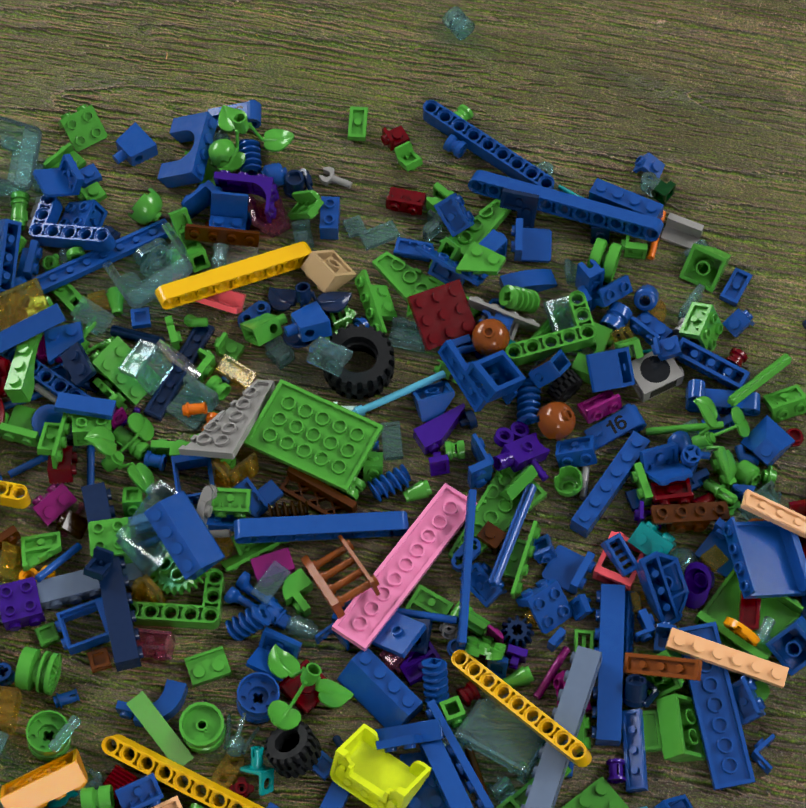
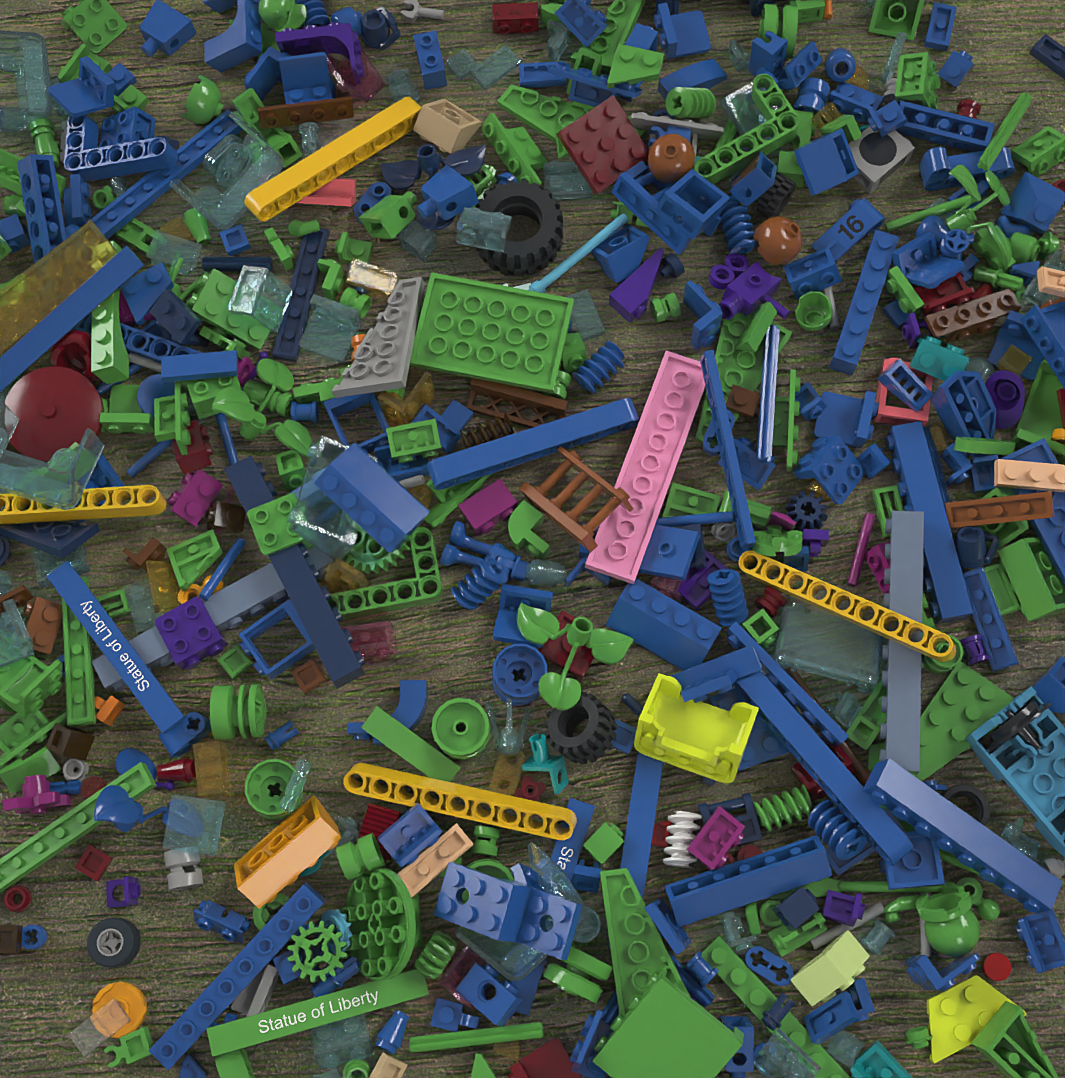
camera: 10 degrees left, 10 degrees up
(74, 252) = (129, 178): bright green tile -> none
(100, 564) = (277, 561): dark blue bracket -> none
(178, 359) = (298, 278): clear tile -> none
(194, 409) = (334, 336): orange pin -> none
(204, 504) = (385, 456): light grey hinge -> none
(207, 666) = (444, 650): bright green plate -> none
(270, 582) = (492, 527): clear light blue tile -> none
(307, 205) = (398, 50): bright green bracket -> none
(418, 491) = (636, 369): bright green cone -> none
(439, 464) = (651, 329): dark purple tile -> none
(520, 677) = (826, 565): bright green cone -> none
(556, 639) = (856, 508): blue tile -> none
(591, 772) = (942, 667): none -> bright green wheel
(599, 406) = (823, 210): magenta bracket -> none
(668, 616) = (984, 445): none -> bright green beam

